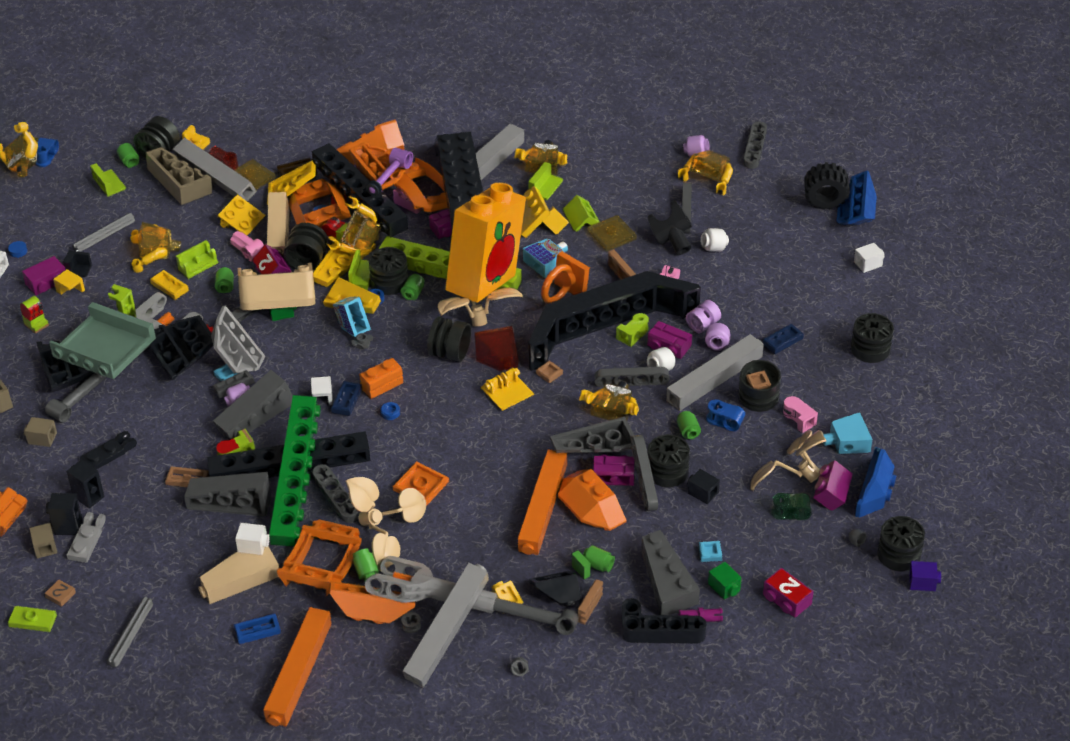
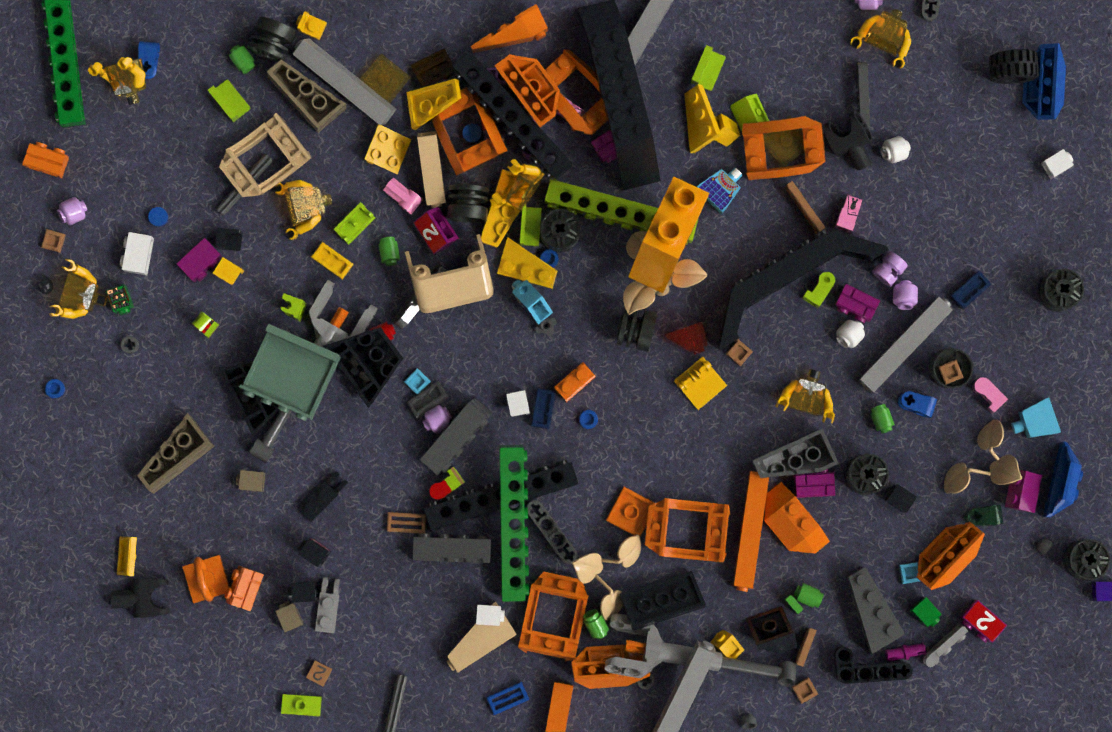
camera: 10 degrees left, 40 degrees up
(101, 209) = (285, 141): none -> tan wedge
(226, 158) = (349, 58): clear red piece -> none
(235, 344) = (423, 365): light grey wedge -> none
(334, 228) = (499, 176): leg -> none
(397, 159) = (554, 84): medium lavender piece -> none
(412, 287) = (587, 246): bright green brick -> none
(439, 547) = (662, 600): none -> black plate
(506, 495) = (715, 535): none -> orange wedge
(541, 153) = (703, 30): clear yellow torso -> none
(569, 275) = (750, 227): orange tile -> none
(581, 231) = (755, 147): none -> orange wedge
(586, 644) = (804, 690): none -> medium nougat tile
(631, 374) = (823, 357): dark grey beam -> none
(644, 473) = (845, 495): dark grey beam -> none
(744, 610) = (943, 647): none -> light grey hinge
(756, 532) = (949, 554): none -> orange wedge

